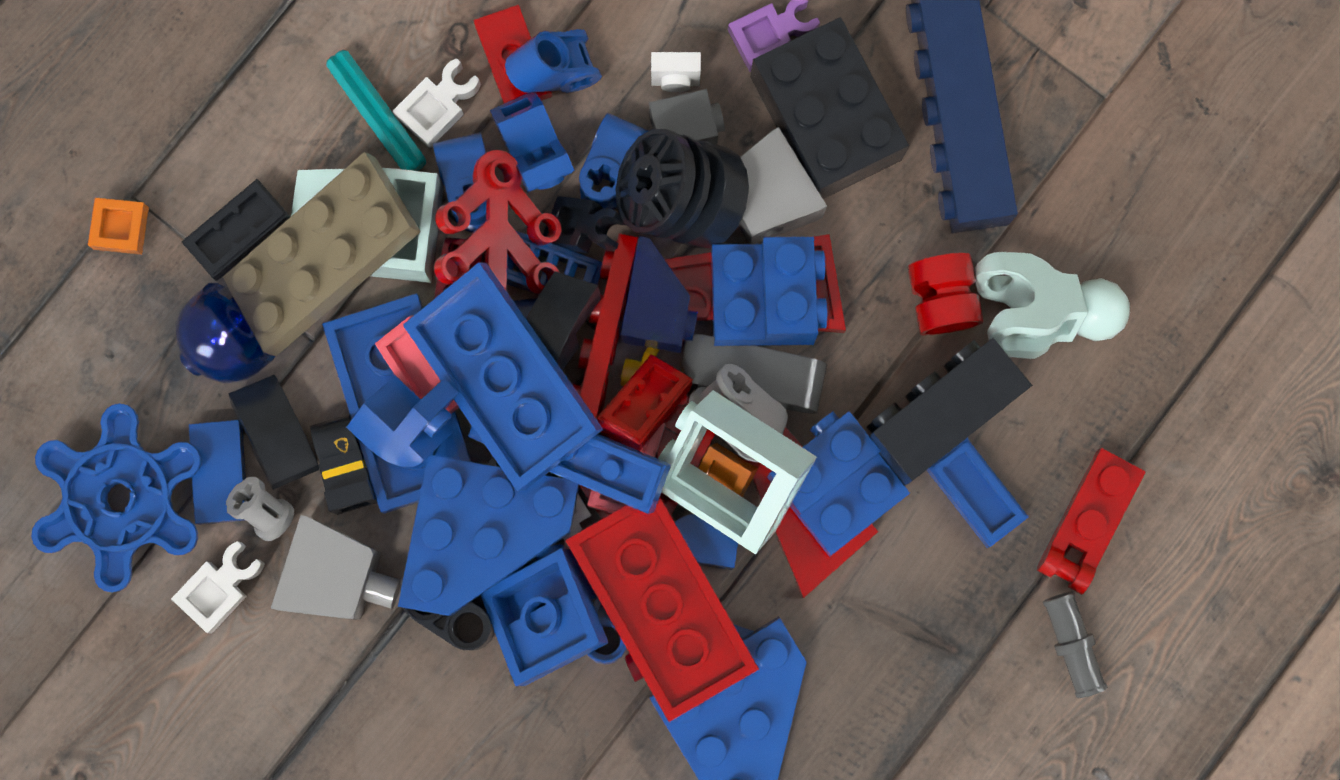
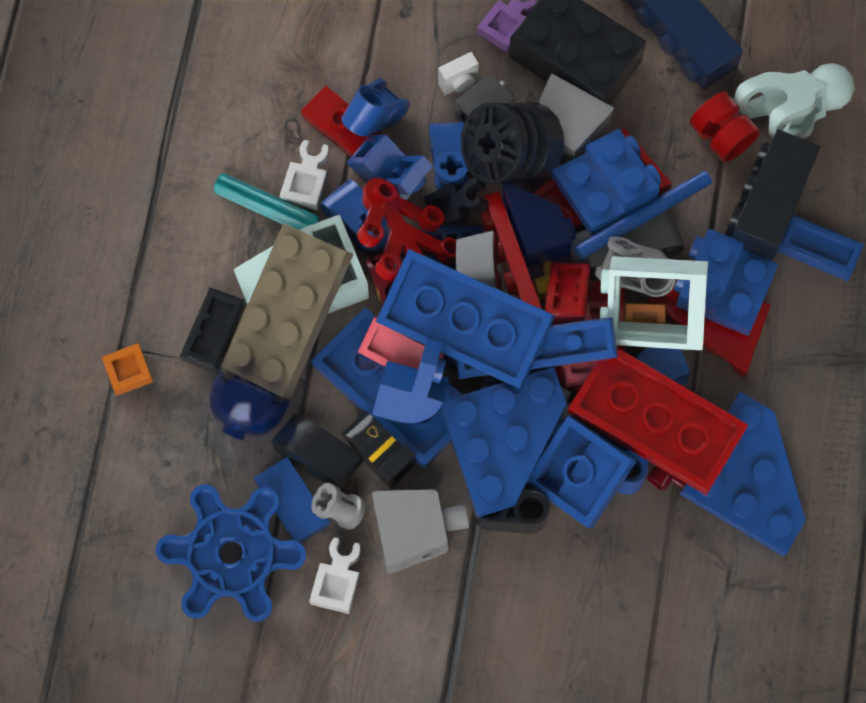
camera: 25 degrees left, 10 degrees down
(787, 353) = (643, 214): none -> blue bar

